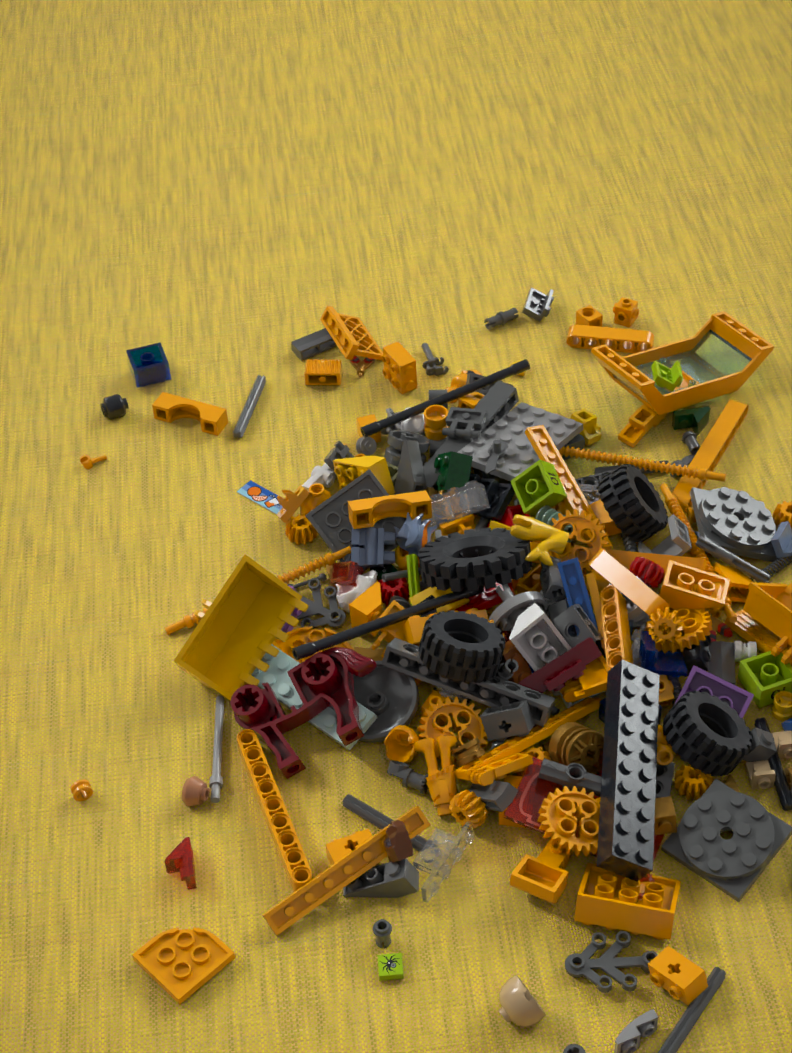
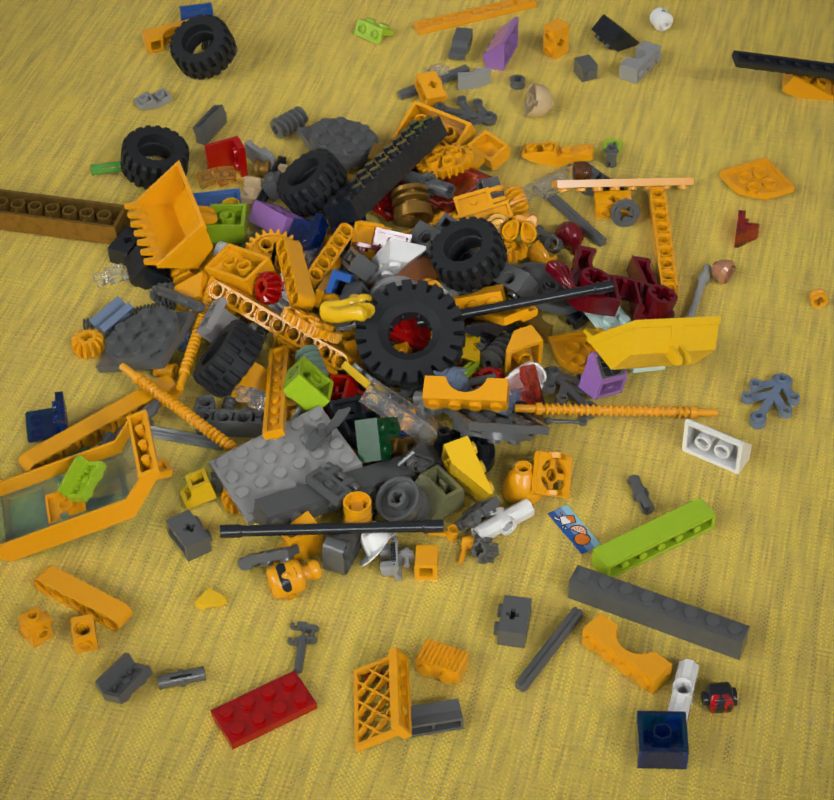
camera: 160 degrees left, 0 degrees up
(88, 463) = (765, 632): light orange hand -> none
(108, 678) = (780, 383): none -> sand blue plant
(141, 399) = (684, 686): none -> white piece
(156, 581) = (715, 446): none -> white slope
(174, 443) = (658, 612): none -> dark grey brick
(191, 497) = (653, 538): none -> lime brick
(221, 539) = (640, 494): none -> dark grey pin
(282, 410) = (513, 622): none -> dark grey brick
(324, 446) = (485, 550): none -> dark grey gear
(335, 832) = (625, 220): none -> dark grey gear
(366, 446) = (440, 540): light grey wheel -> none
(385, 791) = (570, 234): none -> dark red hair
(399, 367) = (353, 619): light orange brick -> none
(433, 321) = (263, 709): none -> red plate
(459, 918) = (552, 155): none -> light orange slope
(566, 396) = (189, 535): none -> dark grey brick
(673, 623) = (292, 229): light orange gear -> none
(694, 1029) = (439, 68): none -> clear plate
(756, 444) = (47, 422): none -> clear blue bracket

